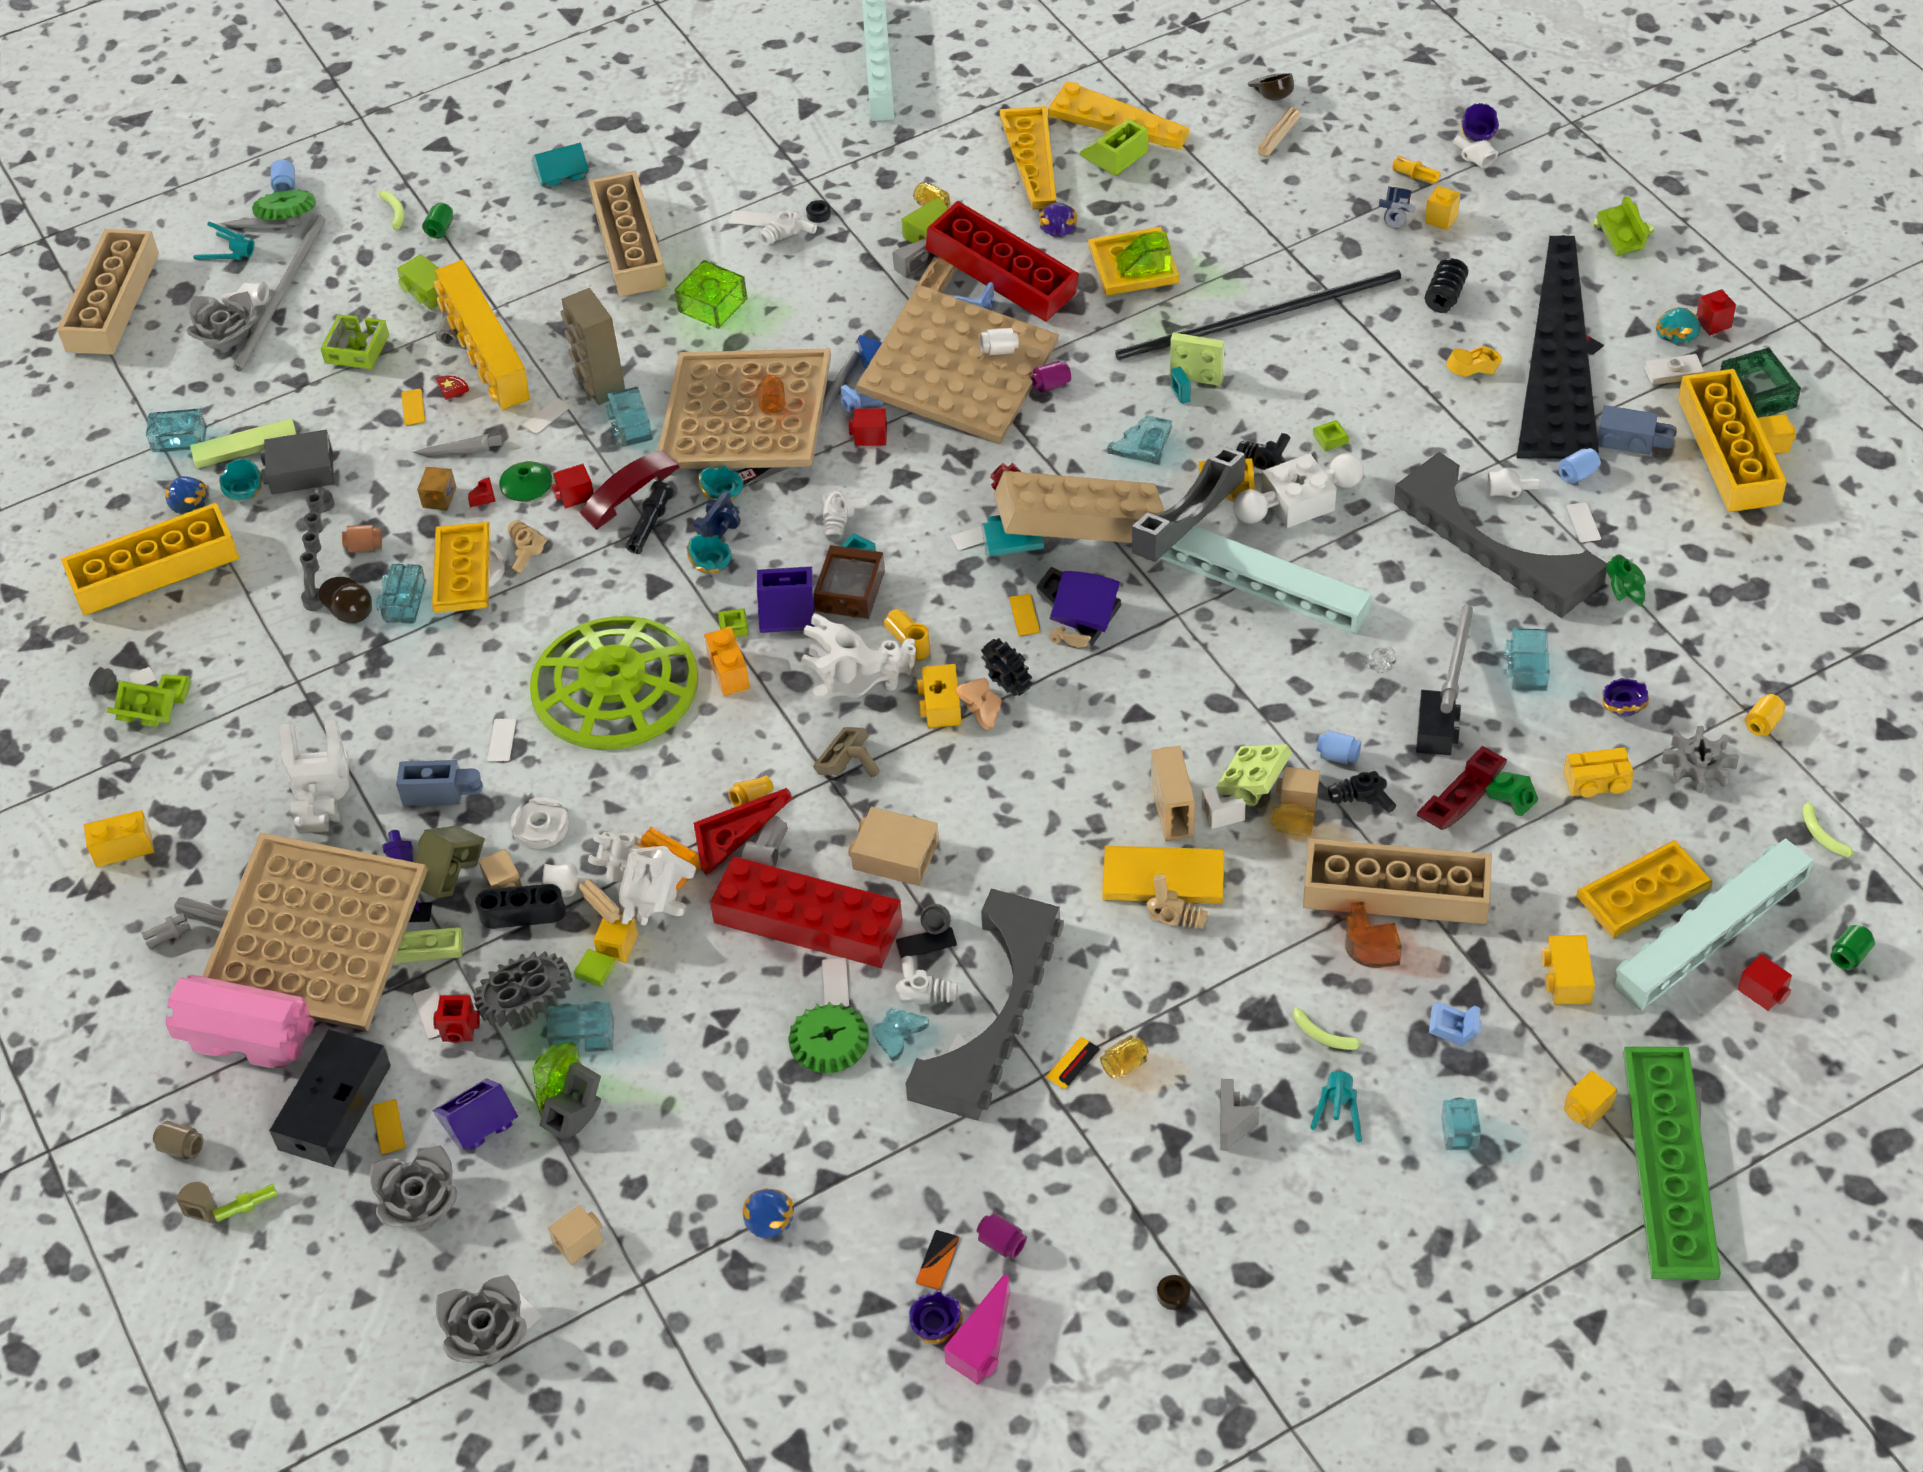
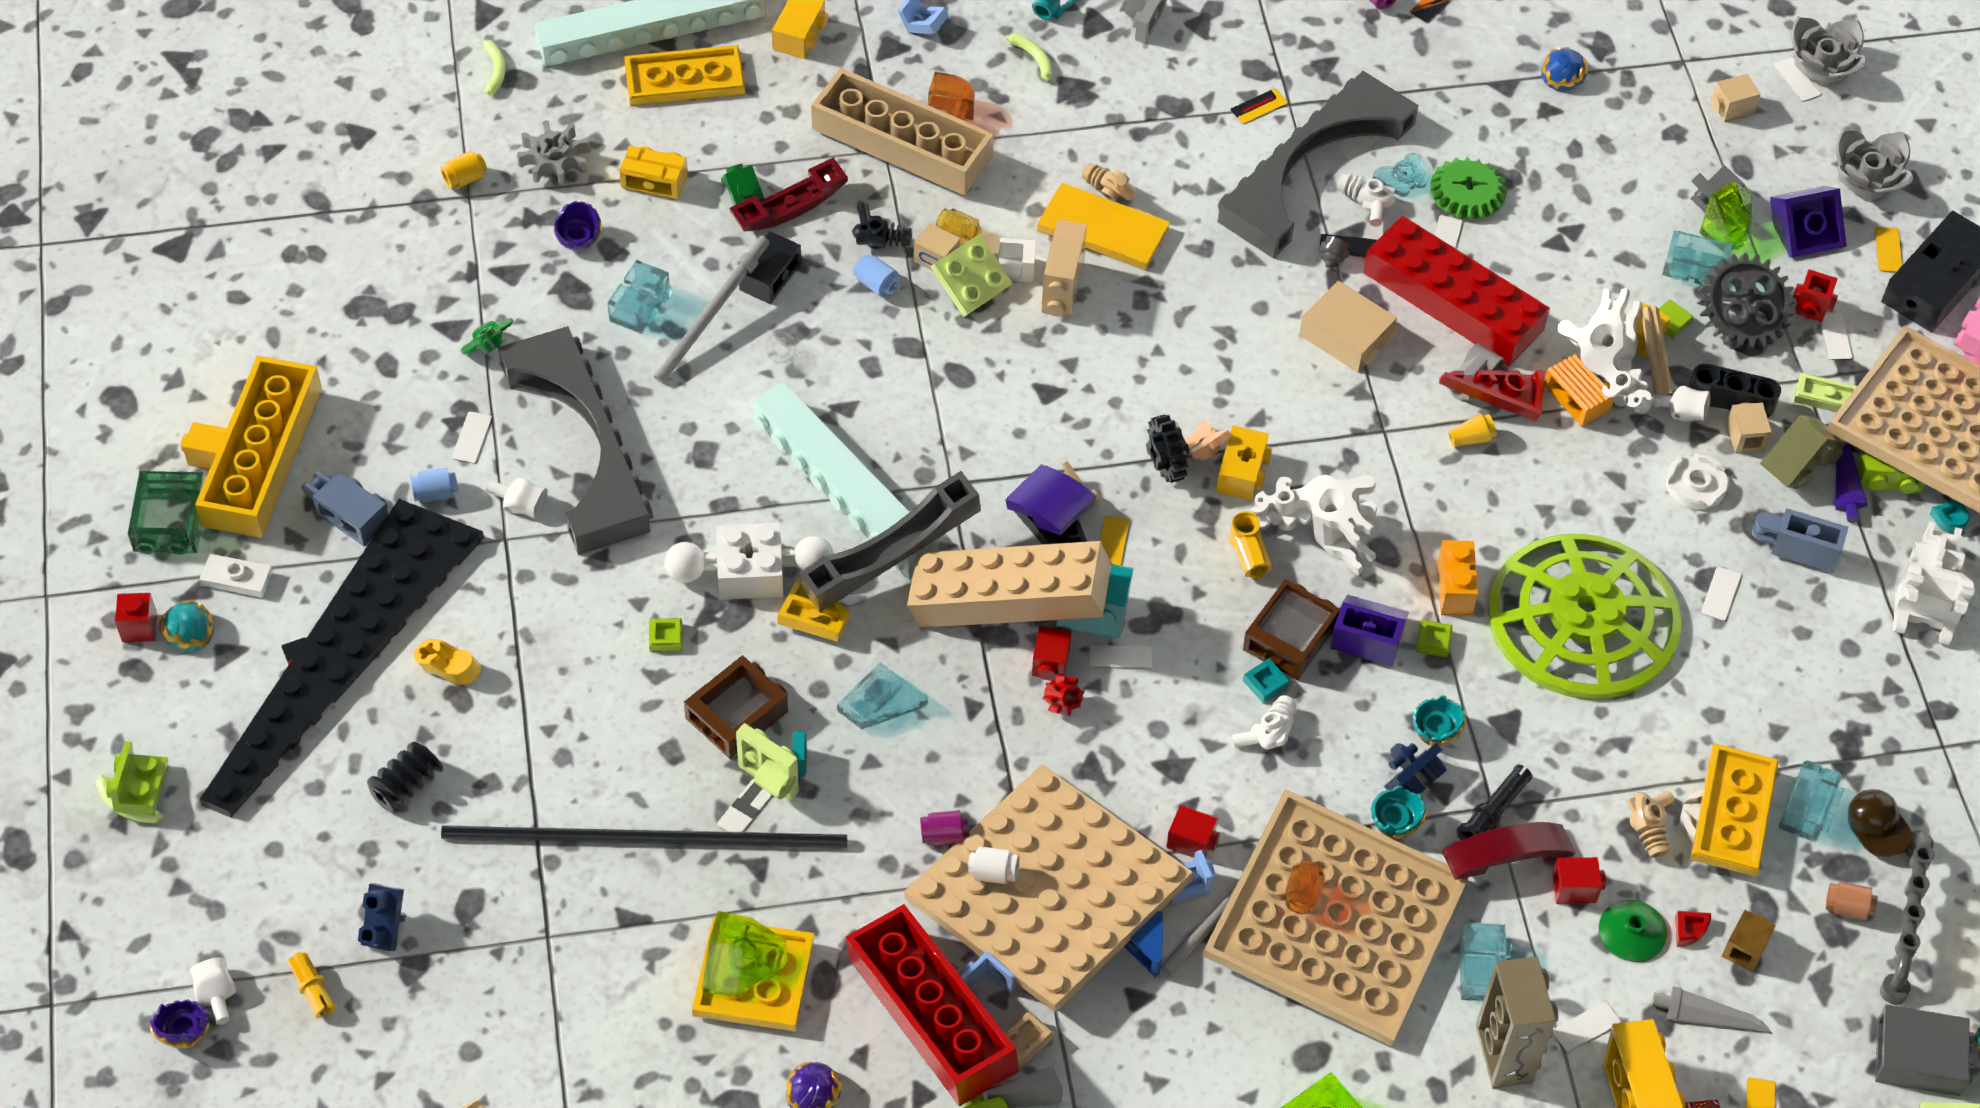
camera: 165 degrees left, 5 degrees up
(844, 748) = (1366, 437): dark tan plate -> none
(1124, 1056) = (1216, 81): clear yellow brick -> none
(1245, 399) = (734, 698): none -> reddish brown window
(1265, 455) = (758, 621): black piece -> none
(1442, 207) = (326, 897): yellow brick -> none

